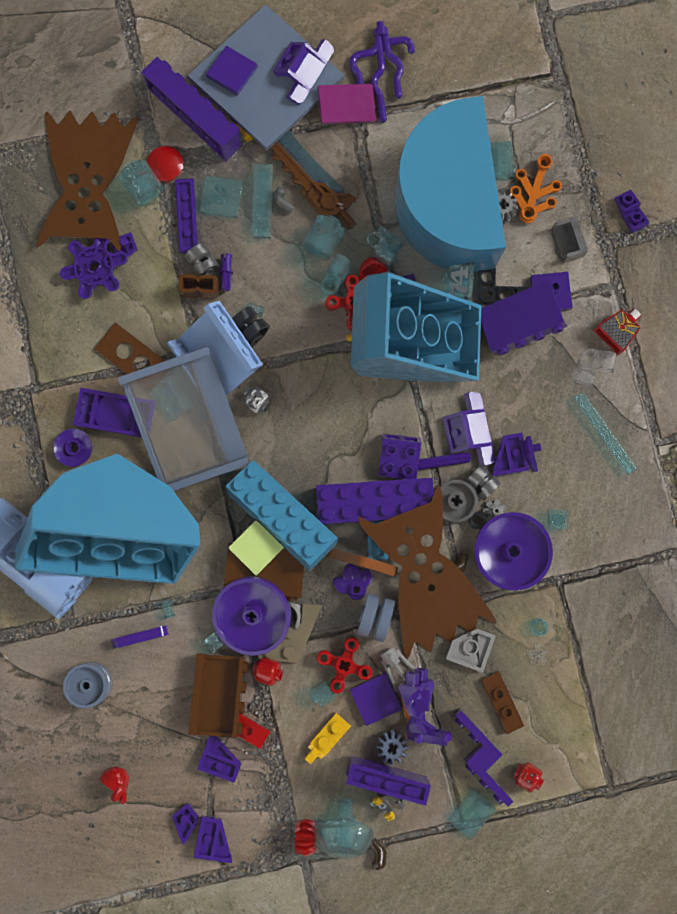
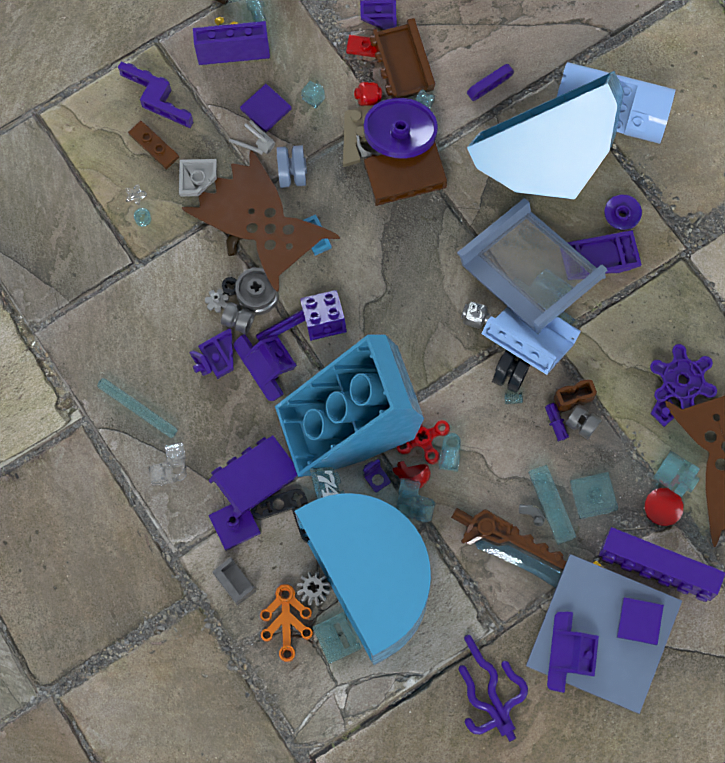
camera: 165 degrees right, 10 degrees down
(75, 685) = (516, 28): sand blue wheel -> none
(117, 336) = (634, 313): reddish brown piece -> none
(168, 607) = (480, 118): clear light blue piece -> none
(186, 214) = (619, 464): dark purple tile -> none
(256, 547) = (420, 183): yellowish green tile -> none
(281, 515) = (409, 218): dark azure brick -> none
(324, 236) = (476, 487): clear light blue gear -> none
(327, 738) = (295, 63): yellow hinge -> none
(341, 673) = (307, 121): red gear -> none
(346, 104) = (510, 635): magenta tile -> none
(351, 579) = (323, 196): dark purple plate -> none
(363, 562) = (322, 203): dark orange beam -> none
(371, 500) = (333, 265): dark purple brick -> none
(385, 745) = (231, 76): sand blue gear -> none
(416, 697) = (231, 114): dark purple hips -> none
(472, 813) = (149, 50): clear light blue plate -> none
(513, 551) = (188, 267): dark purple dish -> none
(528, 777) = (110, 92): red head -> none
(558, 519) = (156, 313): clear light blue plate -> none
(619, 330) = (155, 509): torso -> none
(630, 211) = (181, 637): dark purple slope -> none

